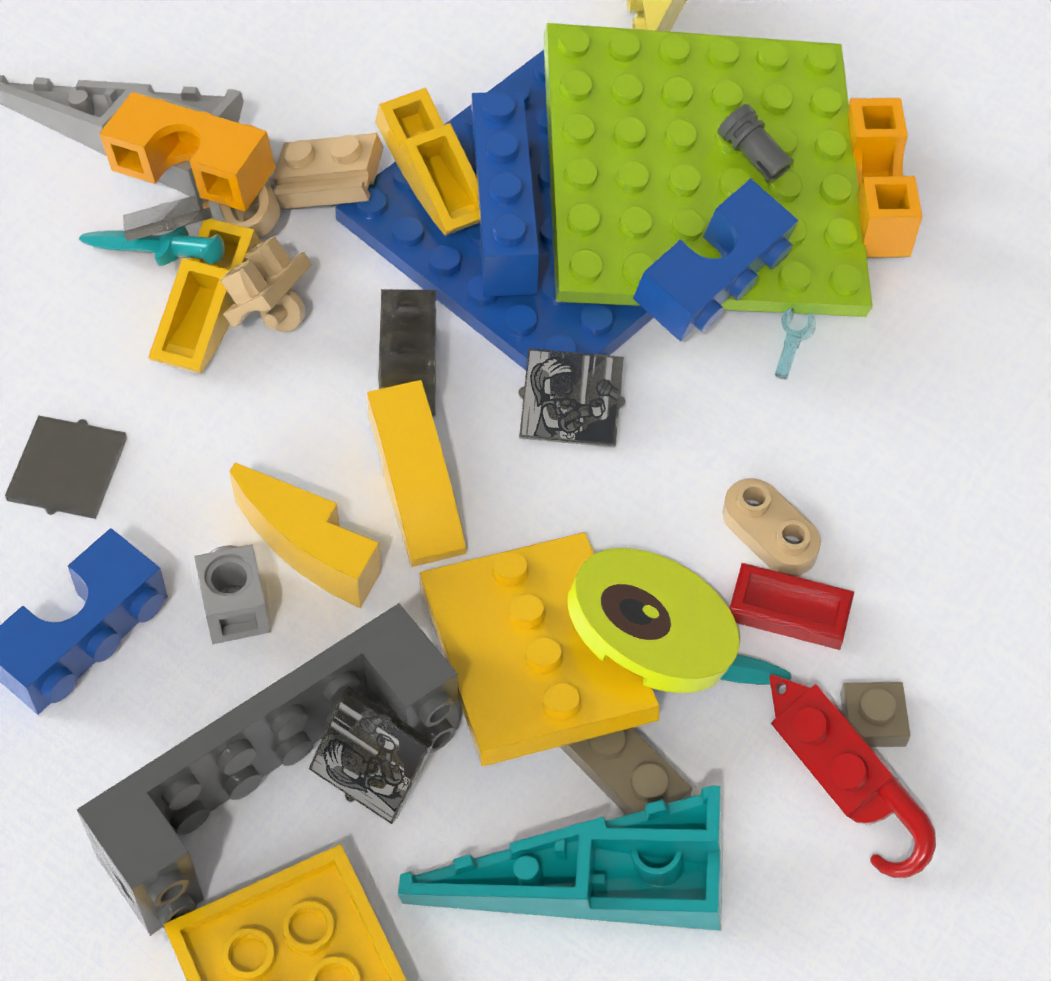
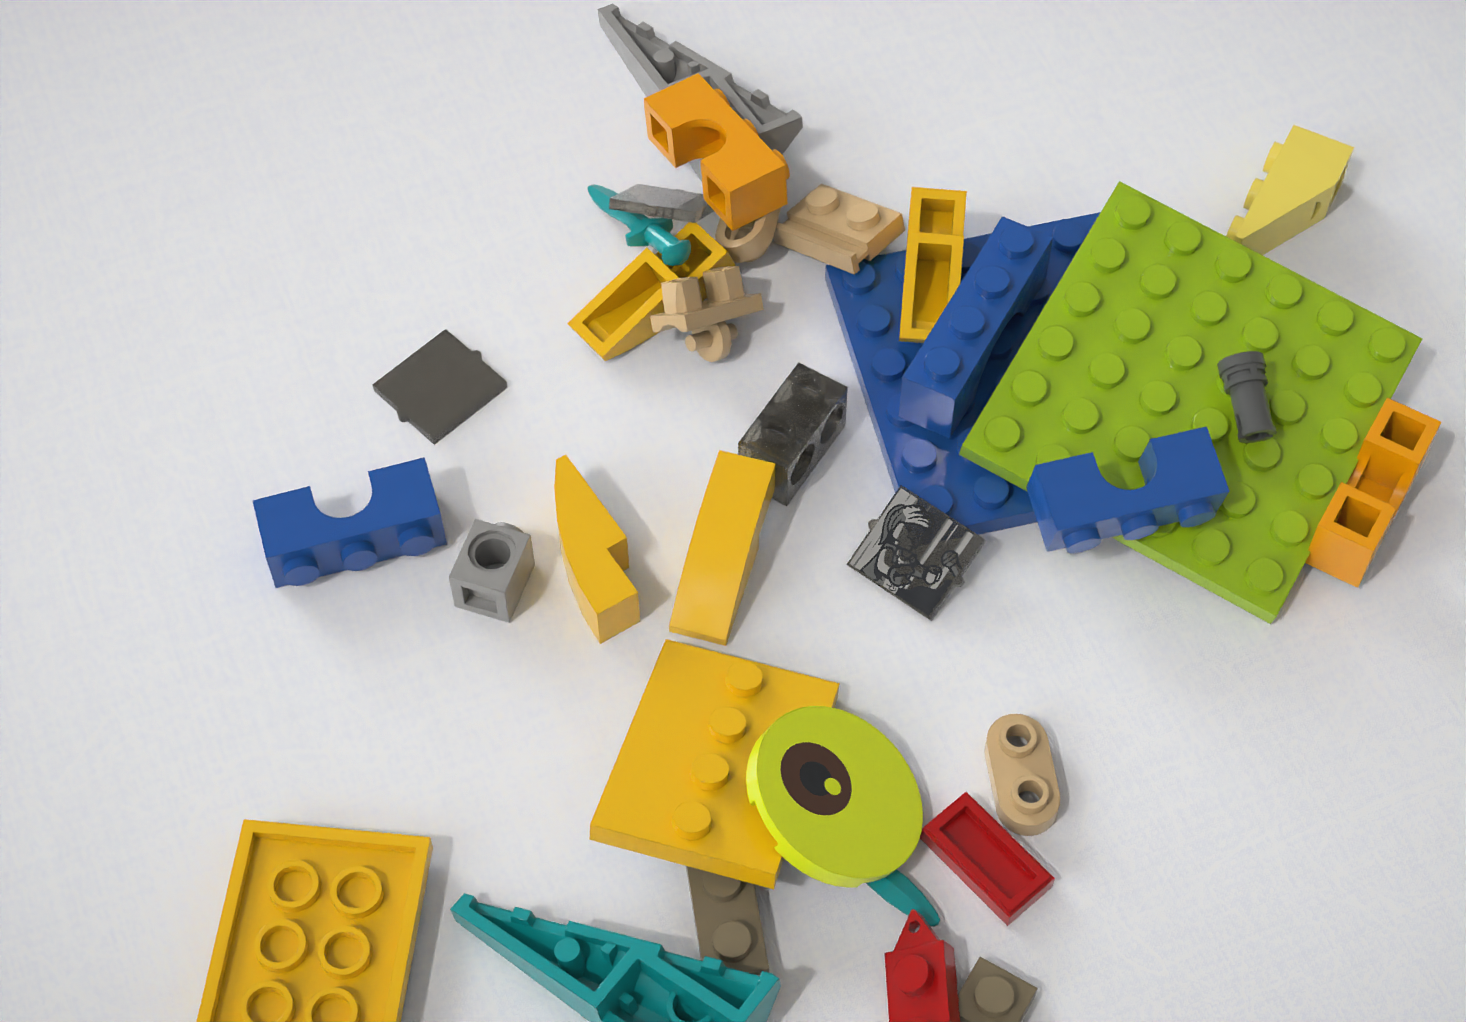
camera: 35 degrees right, 0 degrees up
(139, 818) = (275, 718): dark grey plate -> none
(370, 755) = (502, 774): piece -> none
(792, 341) = (1175, 606): clear light blue hand -> none

